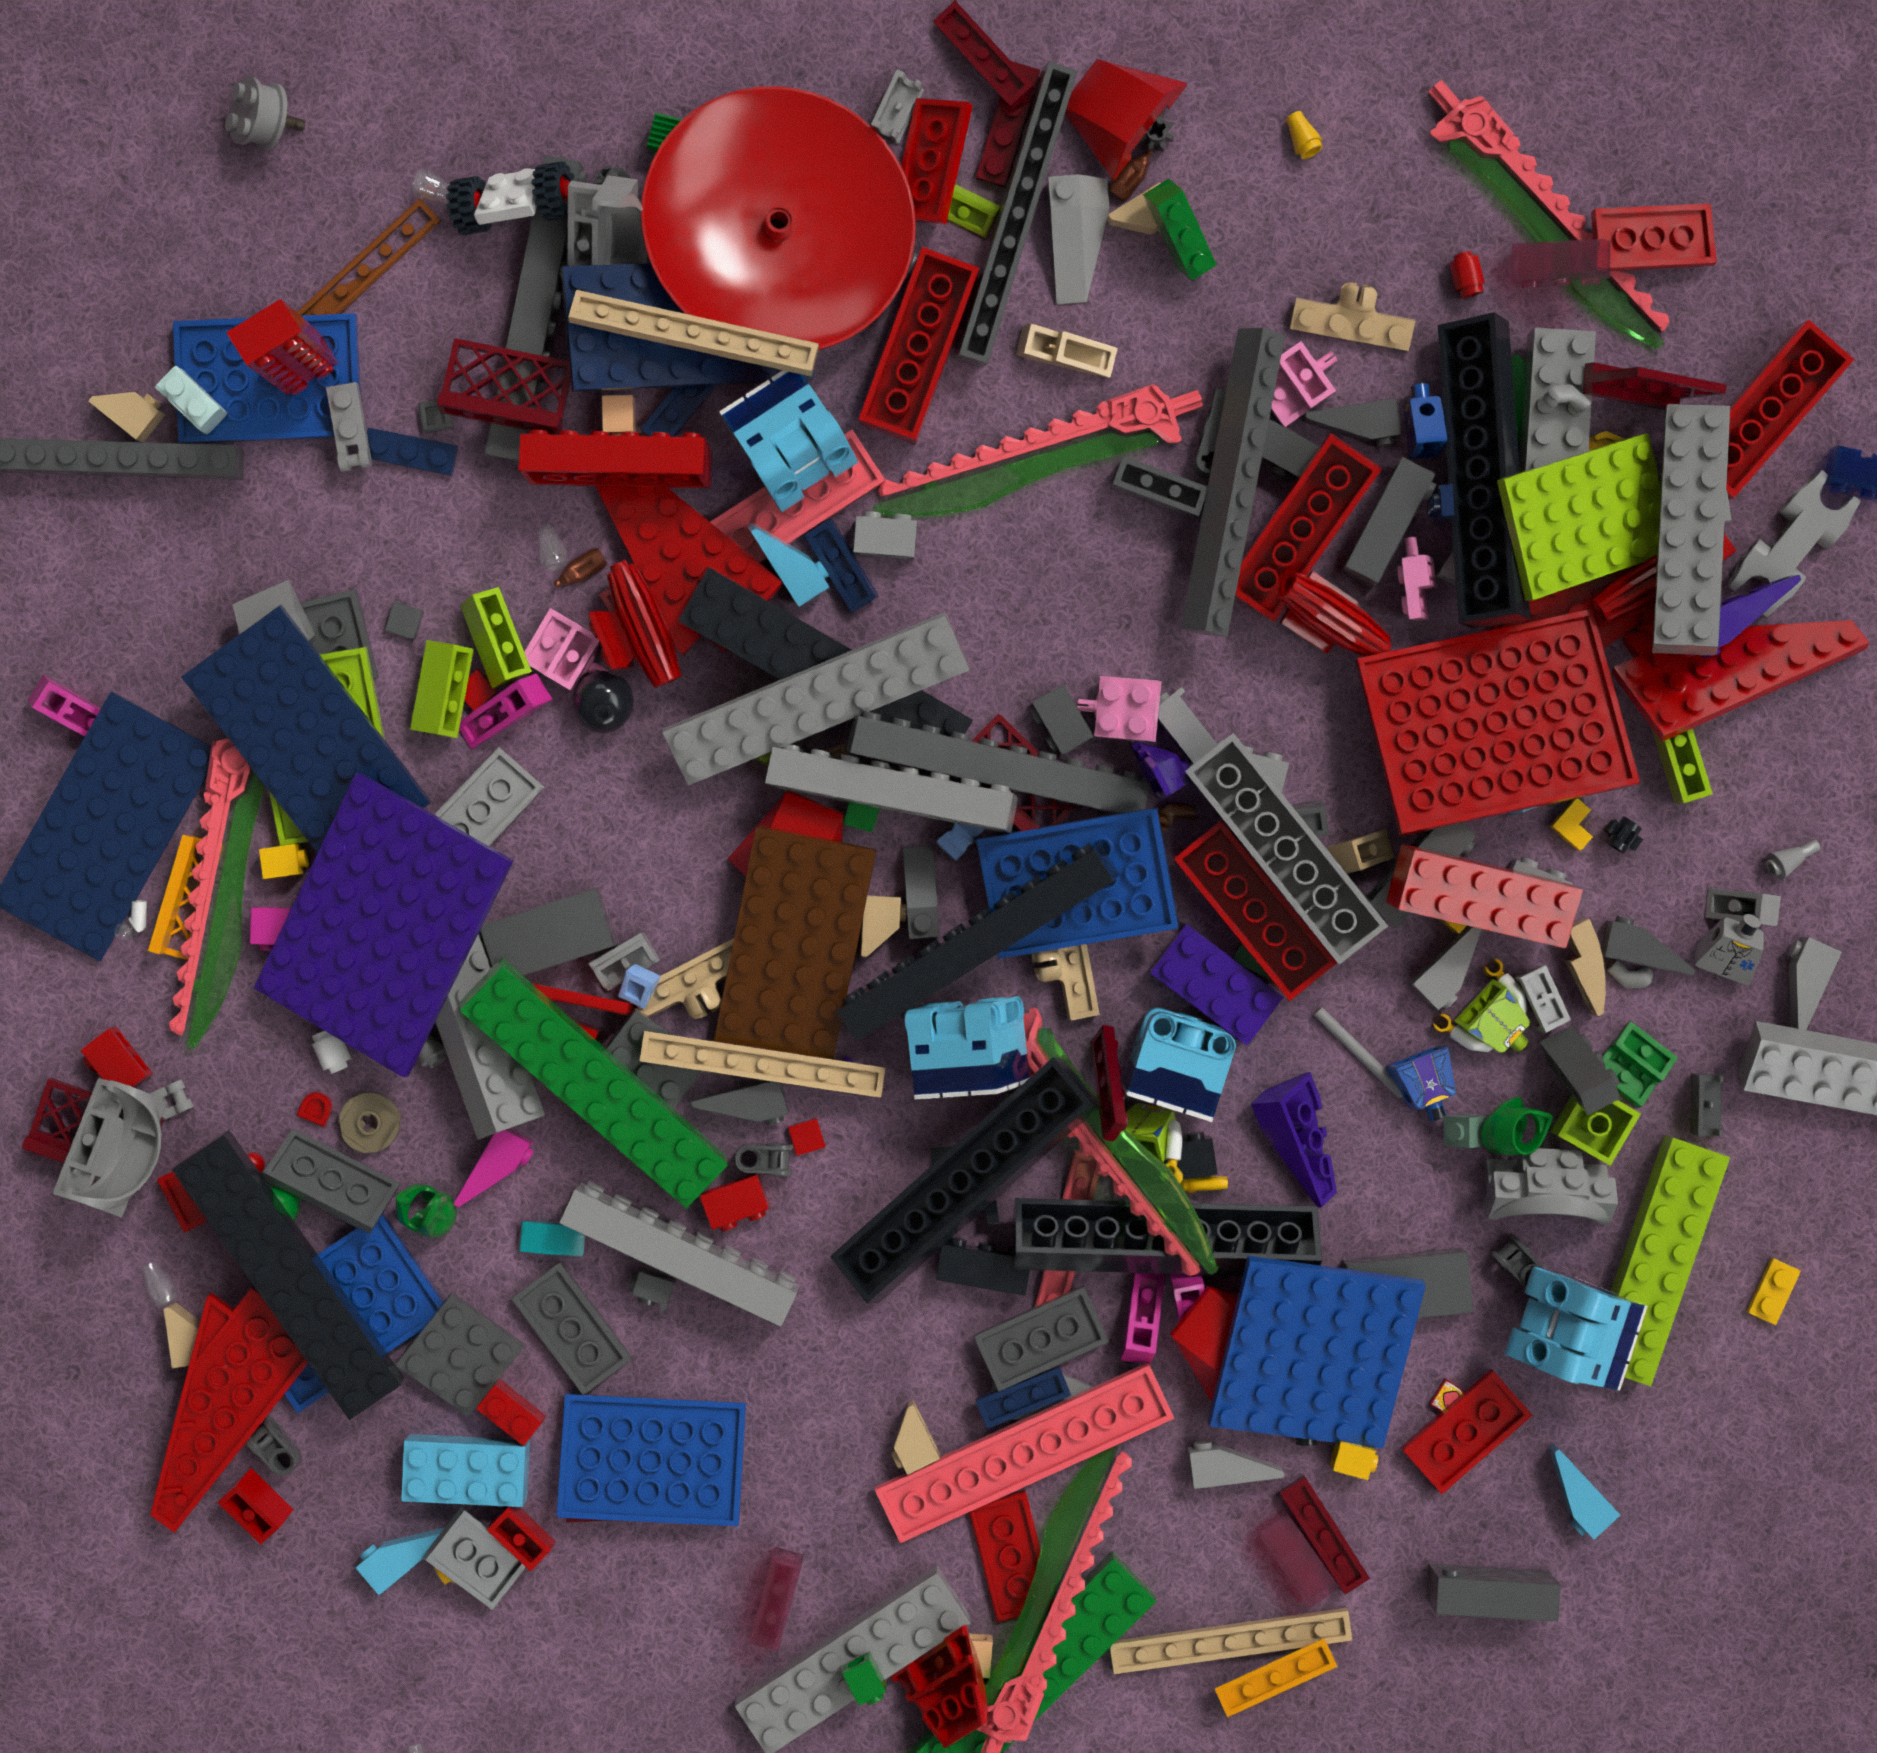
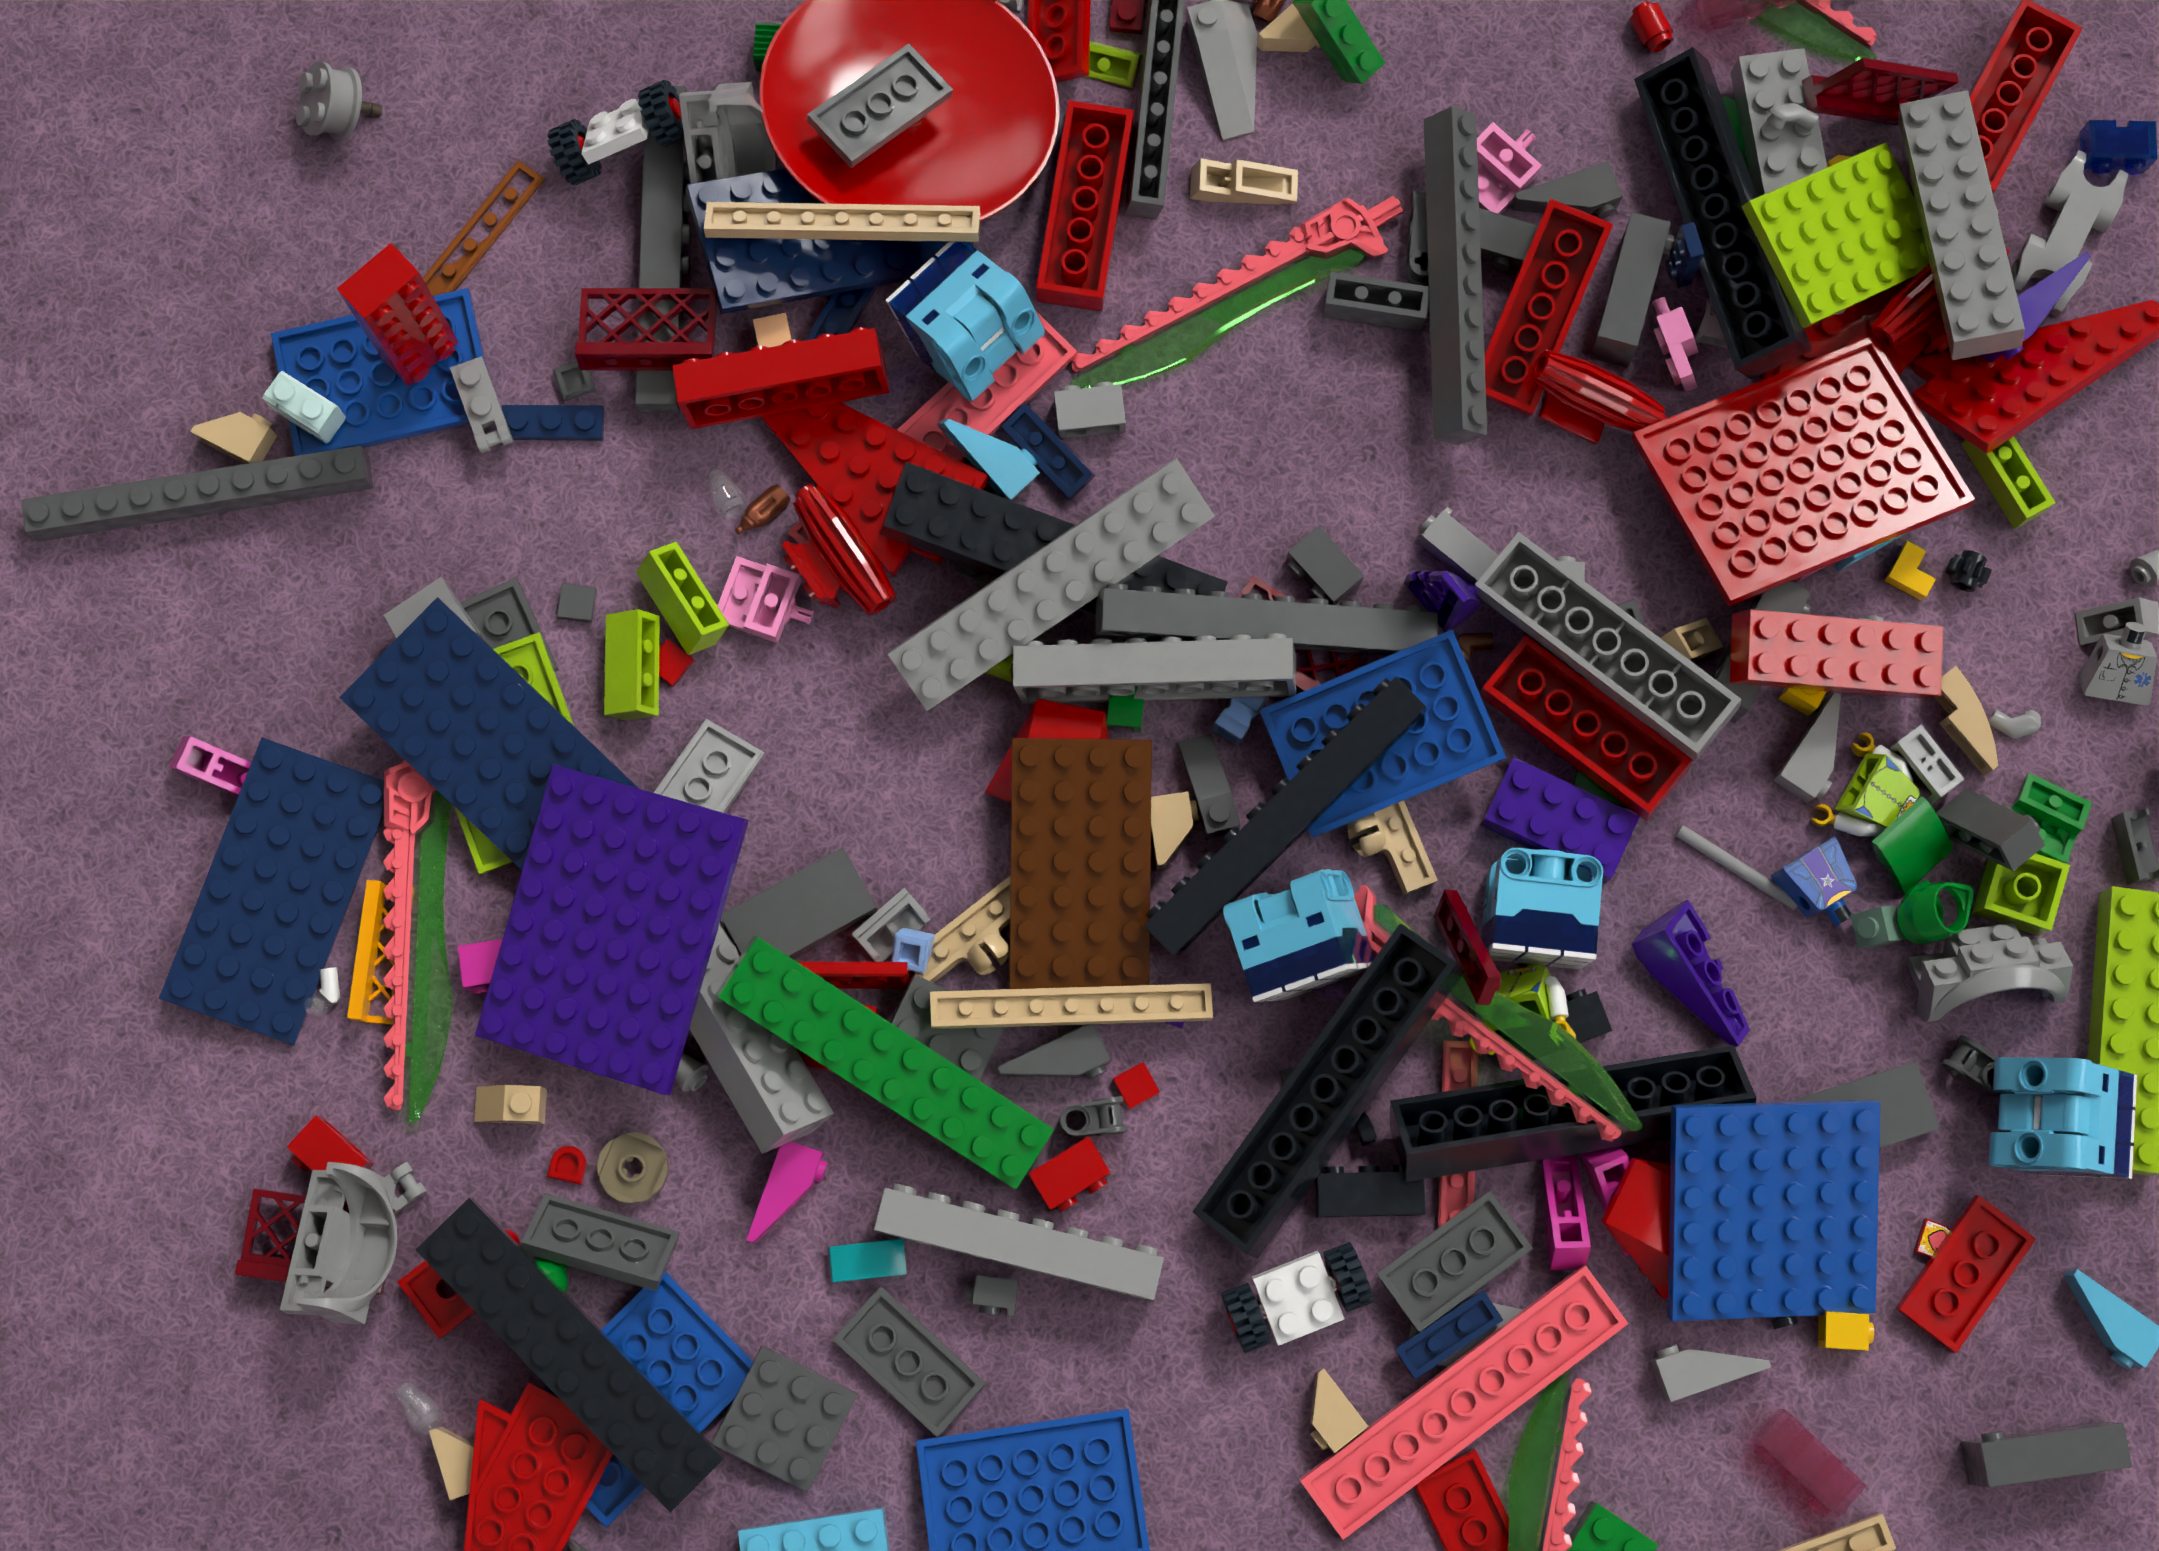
camera: 10 degrees left, 10 degrees down
(276, 1049) = (510, 1104): none -> tan slope
(283, 861) = (485, 890): yellow brick -> none
(330, 1052) = (574, 1093): white brick -> none
(430, 186) = (528, 145): clear cone -> none
(434, 1219) = (730, 1258): green helmet -> none
(504, 710) = (705, 676): dark pink slope -> none
(511, 1412) = (857, 1474): red brick -> none
(603, 702) = (813, 645): black cylinder -> none
(749, 224) = (879, 105): none -> plate
(903, 1343) = (1297, 1297): none -> plate
(1125, 708) = (1392, 540): bright pink plate -> none
(1204, 1183) = (1605, 1046): yellow piece -> none
(1324, 1534) = (1832, 1428): dark red plate -> none
(1353, 319) = (1542, 94): tan plate -> none
(1424, 424) = (1645, 181): blue torso -> none
(1512, 1066) = (1912, 845): none -> green slope
(1638, 946) = (2018, 688): dark grey slope -> none

